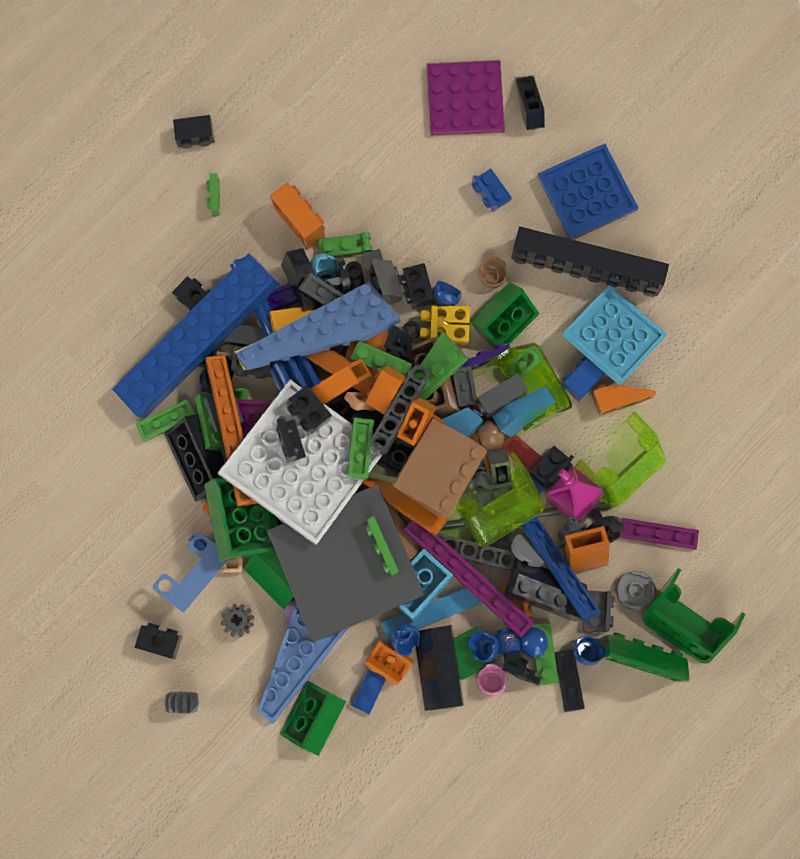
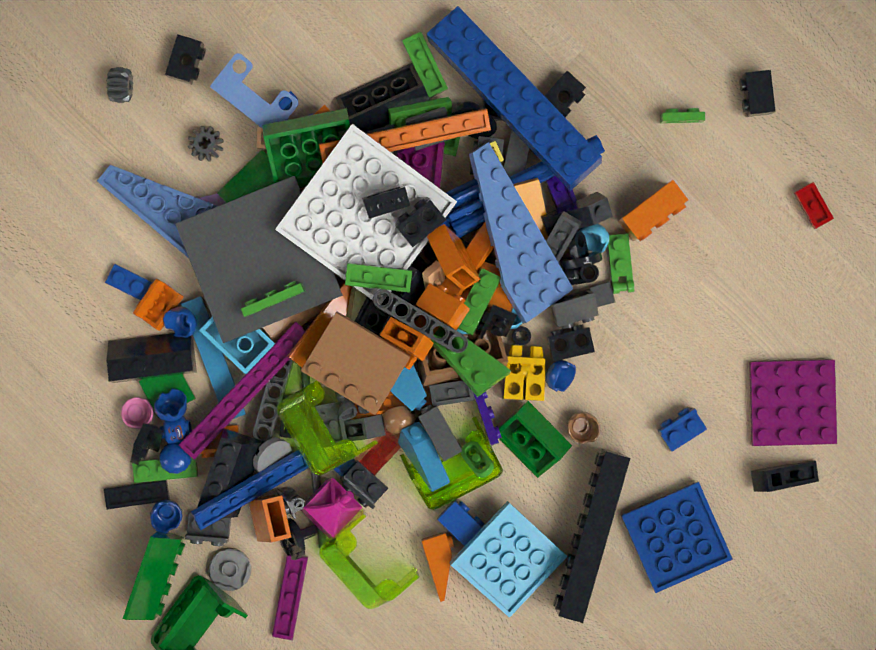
camera: 85 degrees right, 10 degrees up
(292, 83) = (813, 205): none -> red plate
(313, 718) = (101, 223): green slope -> none

